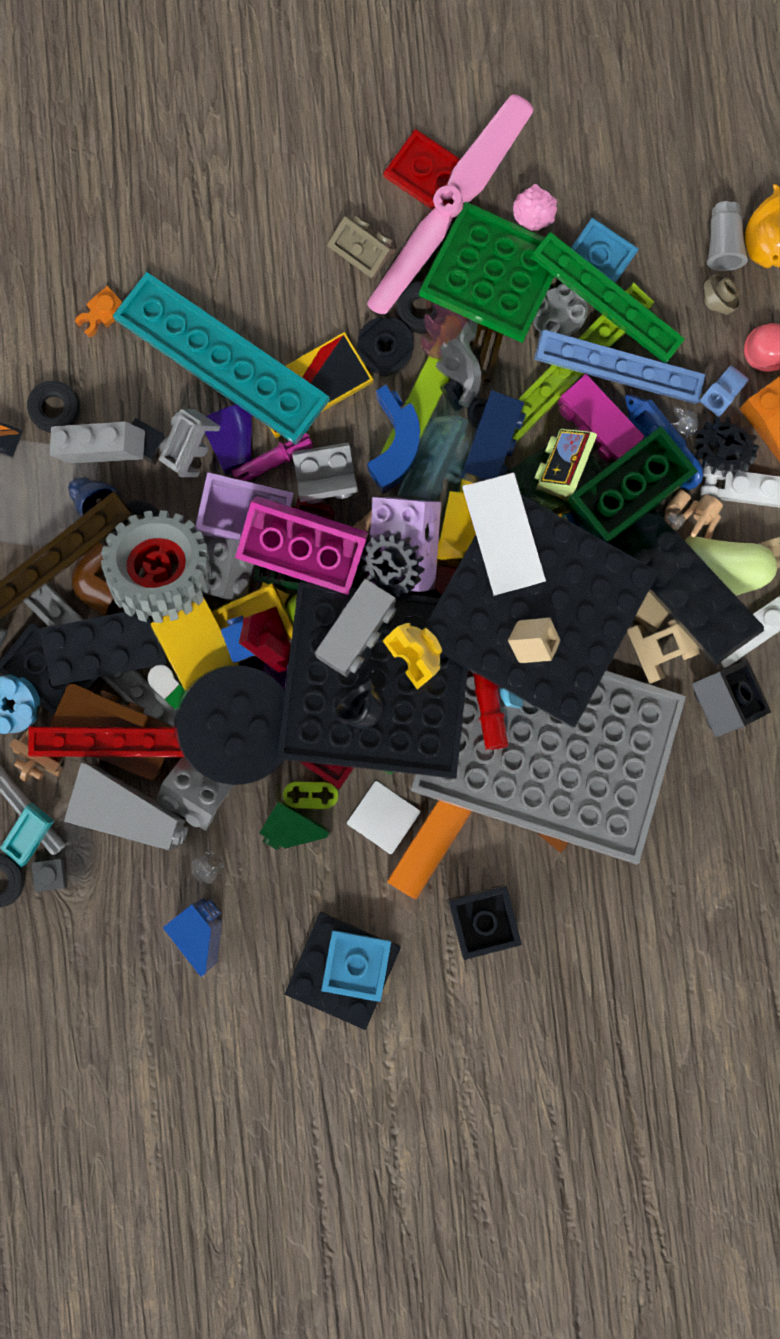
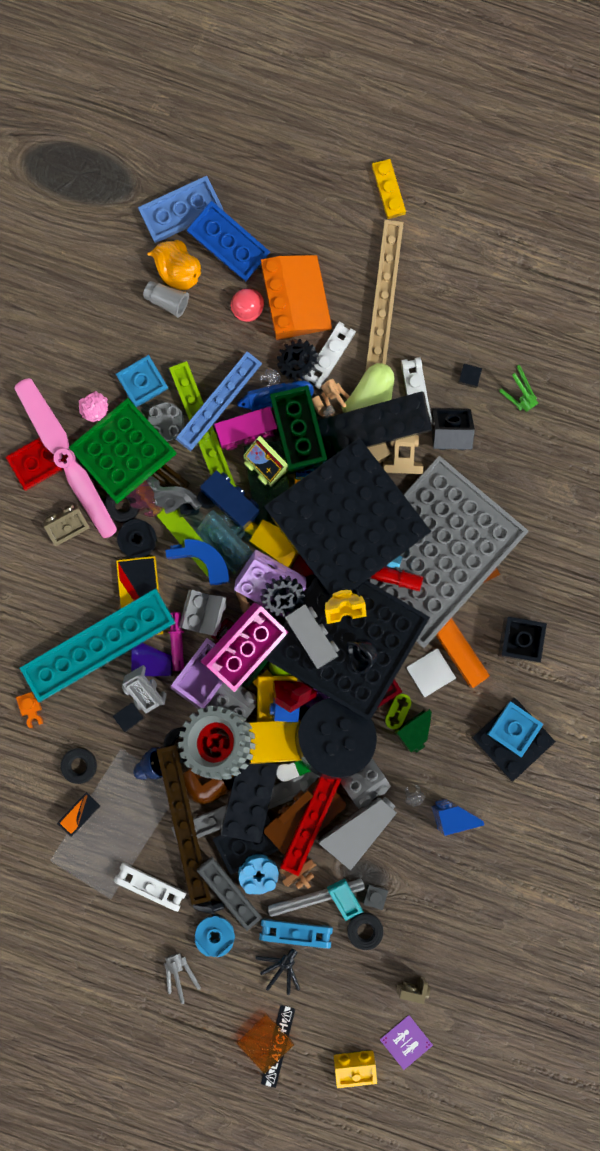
camera: 70 degrees left, 0 degrees up
(97, 442) = (119, 747): light grey brick -> none
(504, 534) = (295, 520): white sticker -> none
(534, 640) = (369, 531): tan panel -> none
(607, 297) = (172, 388): green plate -> none
(721, 294) = (201, 318): dark tan plate -> none
(724, 390) = (261, 342): medium blue leg -> none

